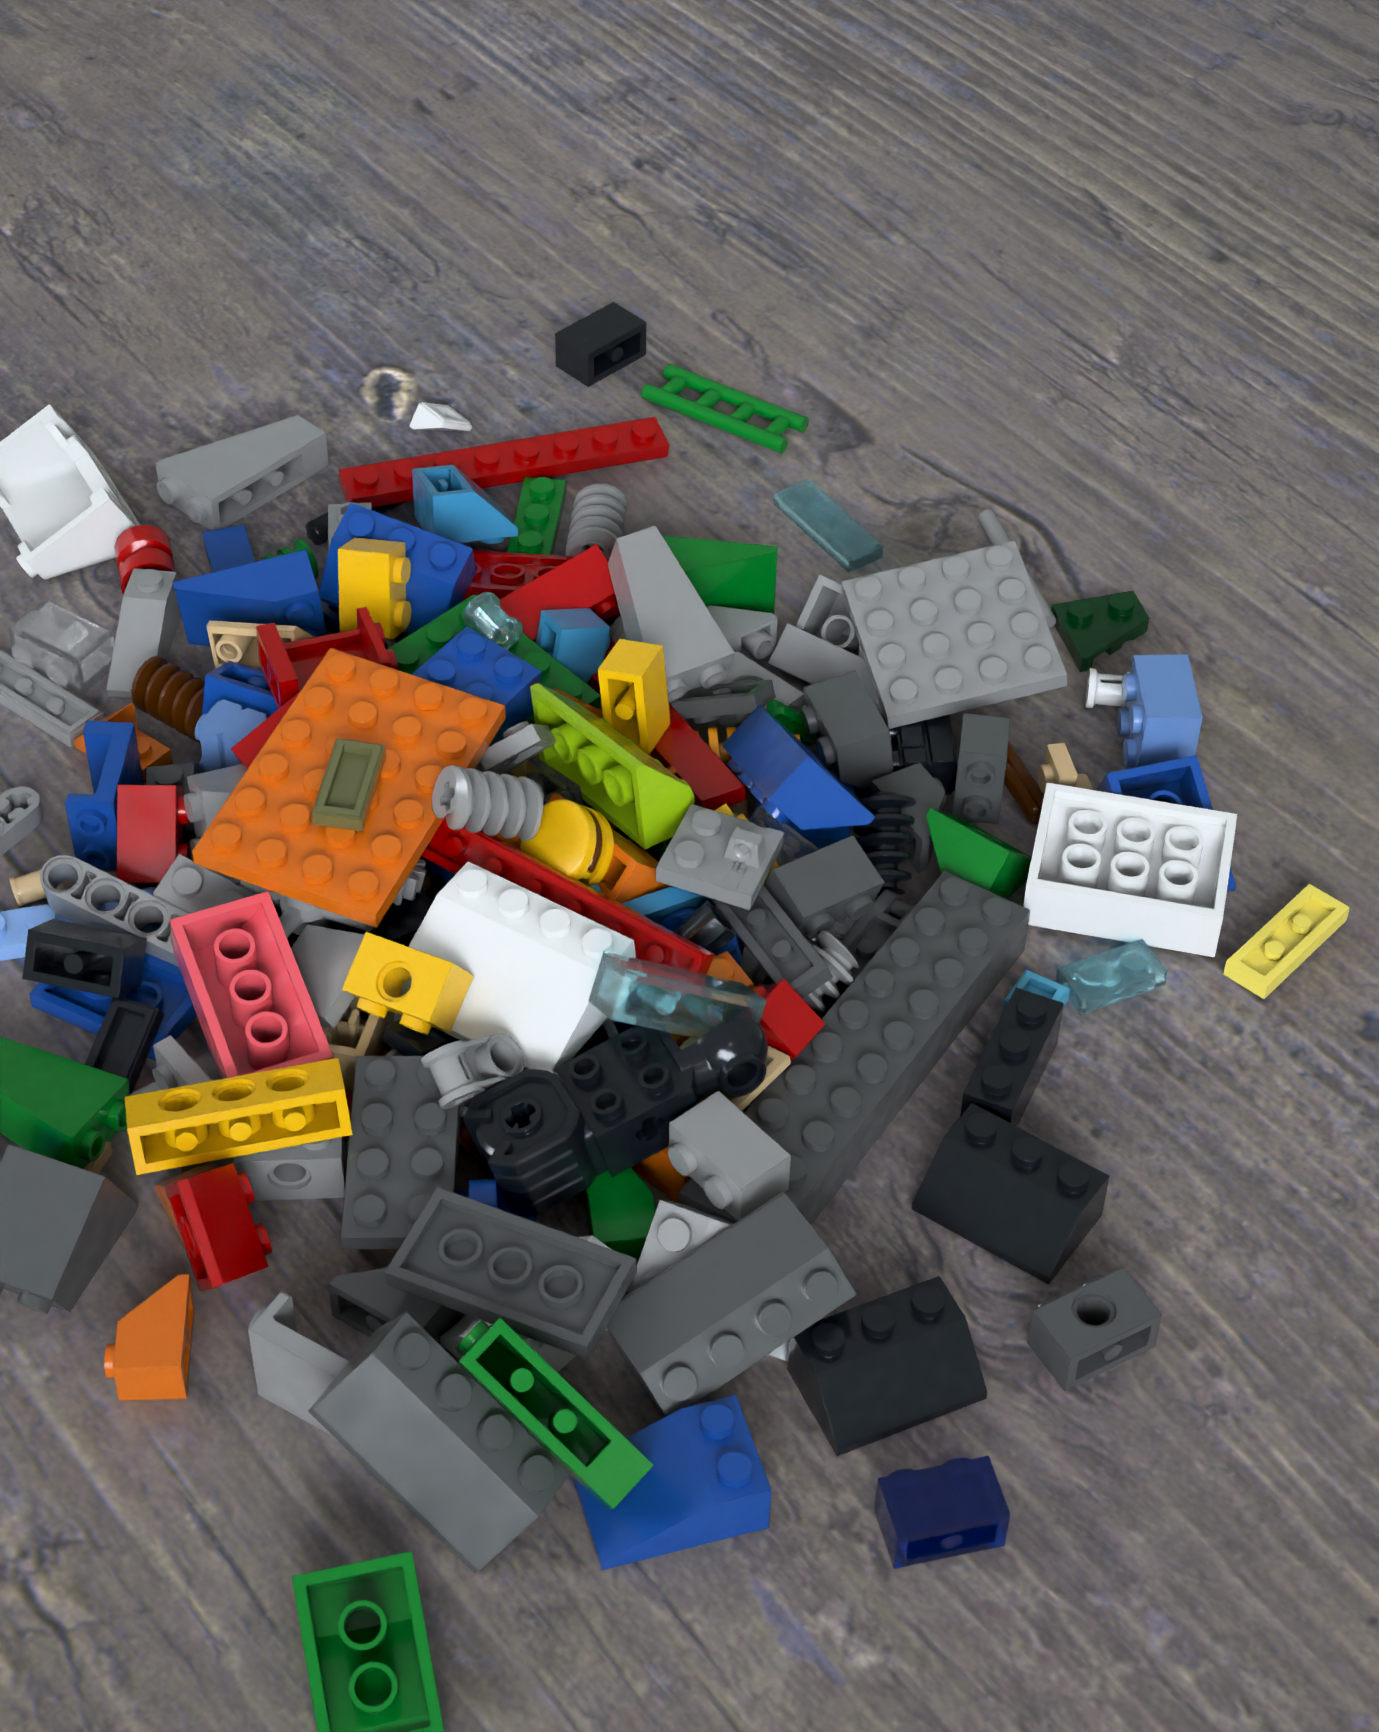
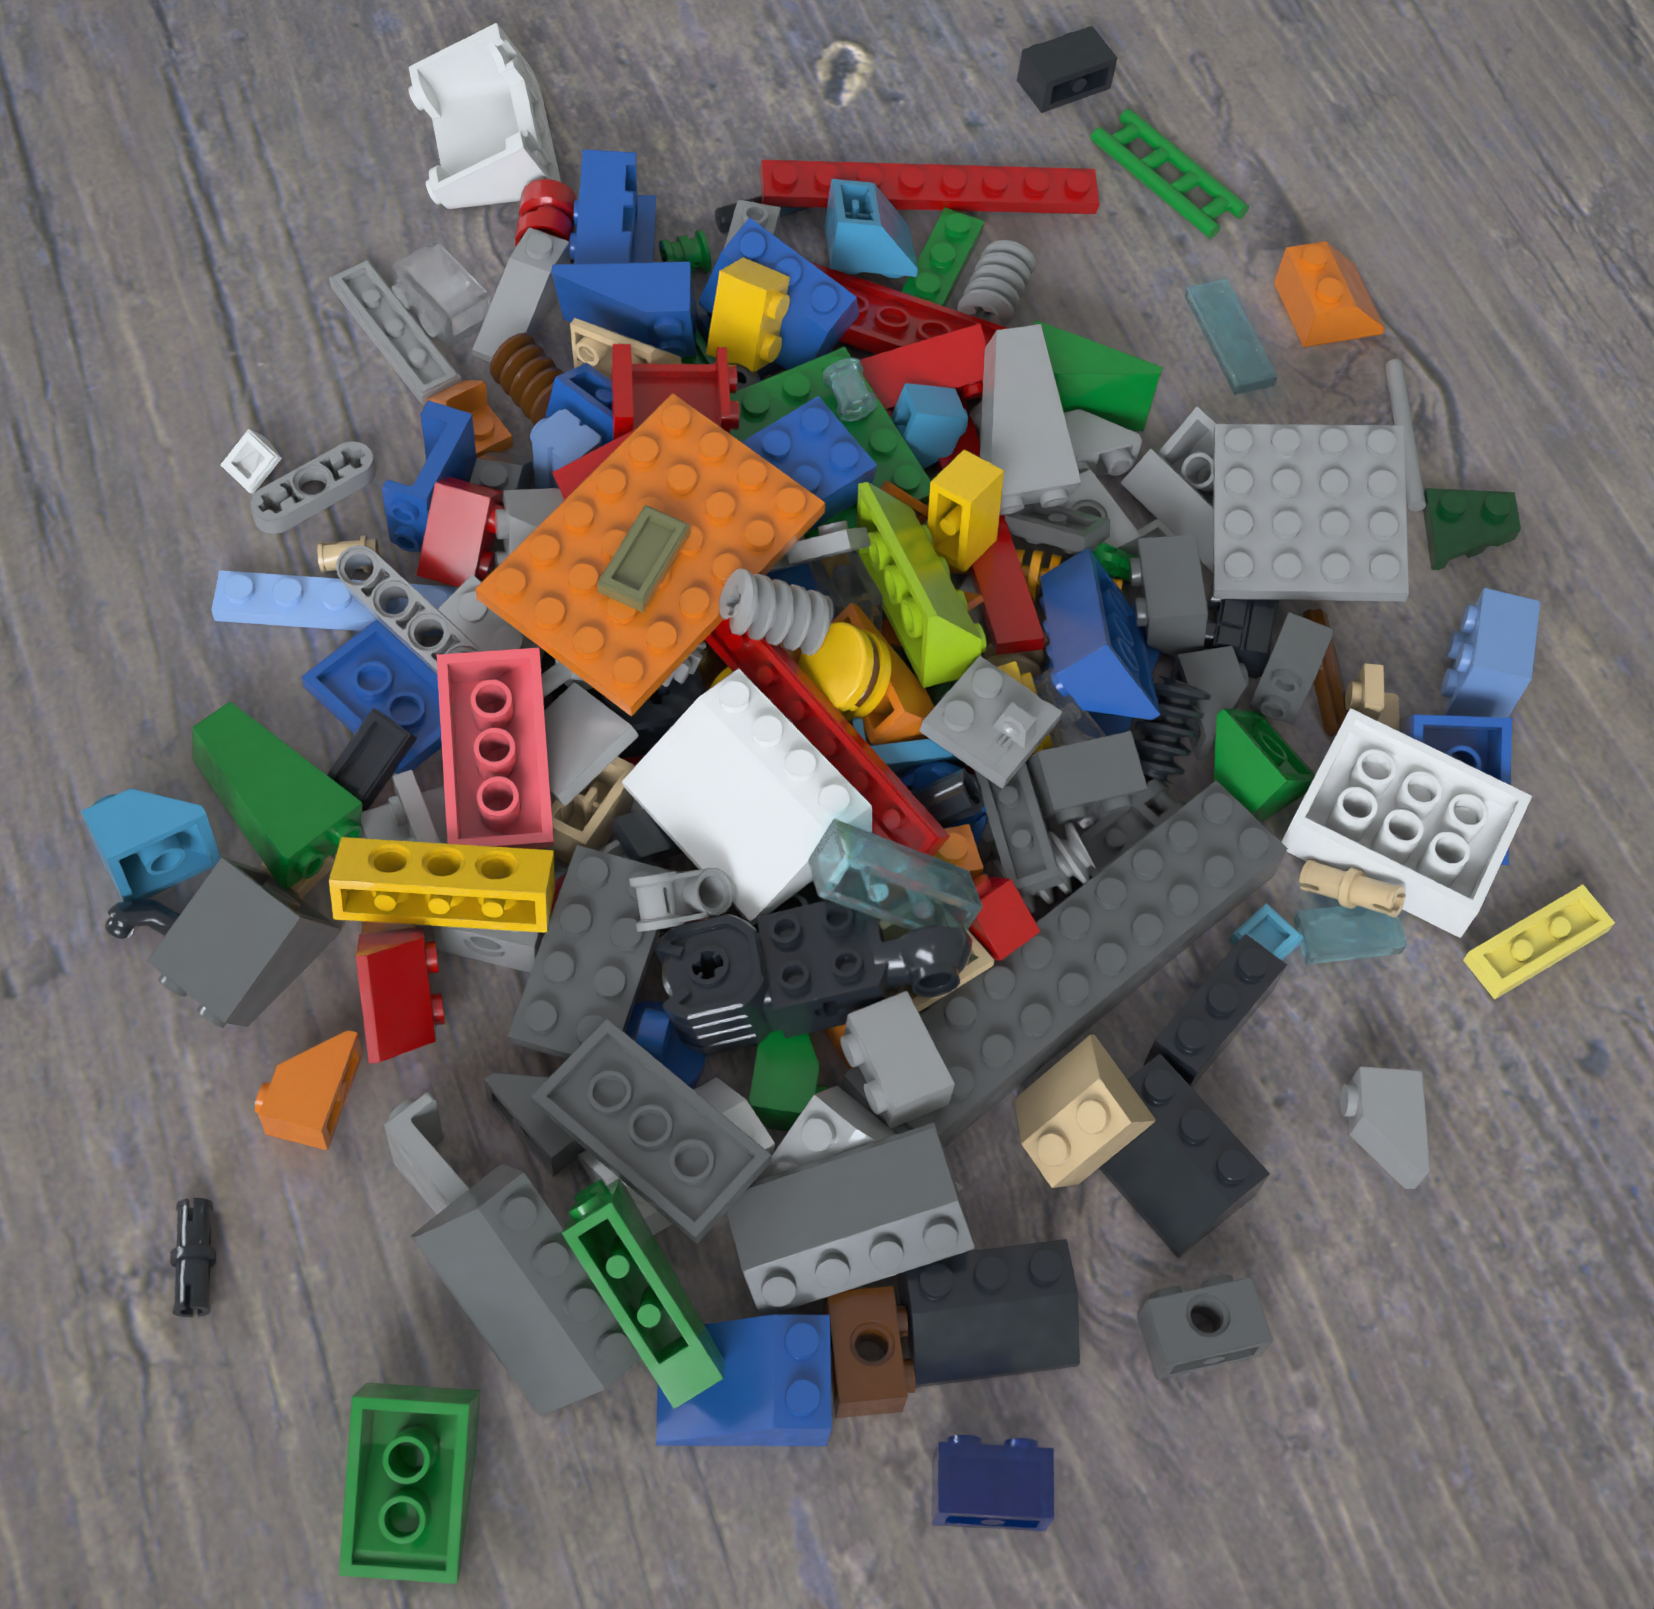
camera: 10 degrees right, 15 degrees up
(82, 1520) = (193, 1257): none -> black pin
(84, 958) = (355, 661): black brick -> none
(203, 527) = (606, 209): none -> blue wedge
(242, 472) = (675, 130): light grey slope -> none
(384, 967) = (669, 794): yellow brick -> none
(438, 417) = (882, 116): white slope -> none
(794, 1456) = (863, 1385): none -> reddish brown brick
(902, 473) = (1325, 295): none -> orange slope
(915, 1175) = (1079, 1115): none -> tan slope
(1101, 934) = (1352, 888): none -> tan pin
(1103, 689) = (1449, 601): white bush -> none
(1204, 1116) = (1389, 1120): none -> light grey slope

